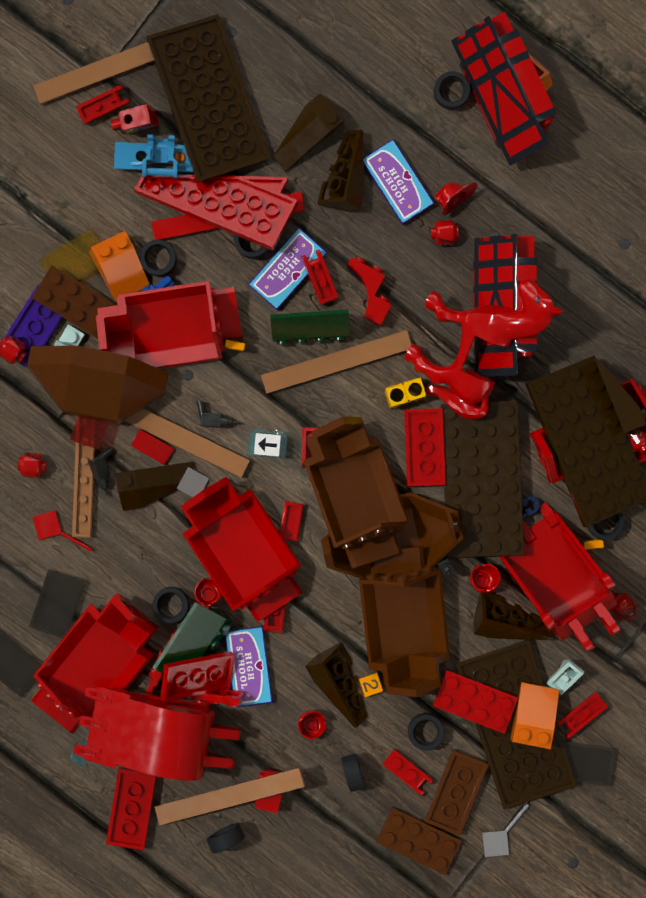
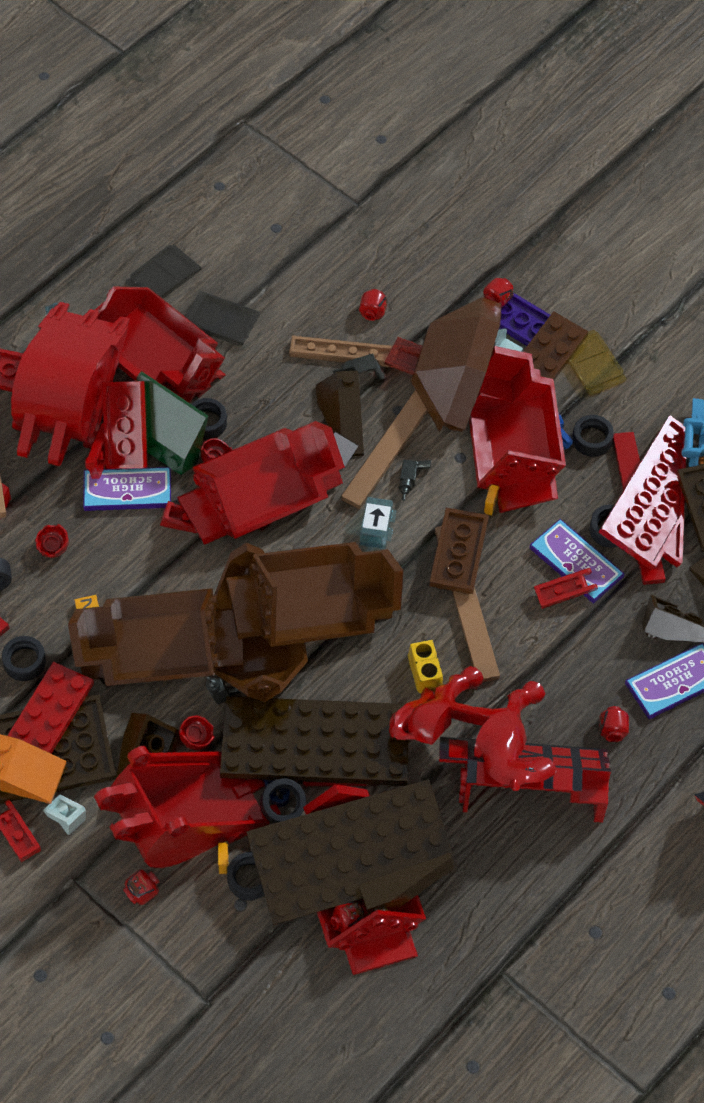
camera: 90 degrees right, 30 degrees down
(48, 526) = (304, 318): red piece -> none
(119, 265) = (588, 394): orange slope -> none
(152, 447) = (383, 414): red slope -> none
(291, 521) = (281, 540): red tile -> none
(292, 370) = (459, 550): none -> reddish brown plate
(310, 326) = (509, 568): dark green slope -> none
(335, 679) = (98, 572): dark brown wedge -> none
(372, 278) = (528, 643): red arch -> none
(424, 447) = (359, 682): red plate -> none
(453, 194) = (657, 735): red piece -> none
(556, 497) = (277, 784): none -> black tyre

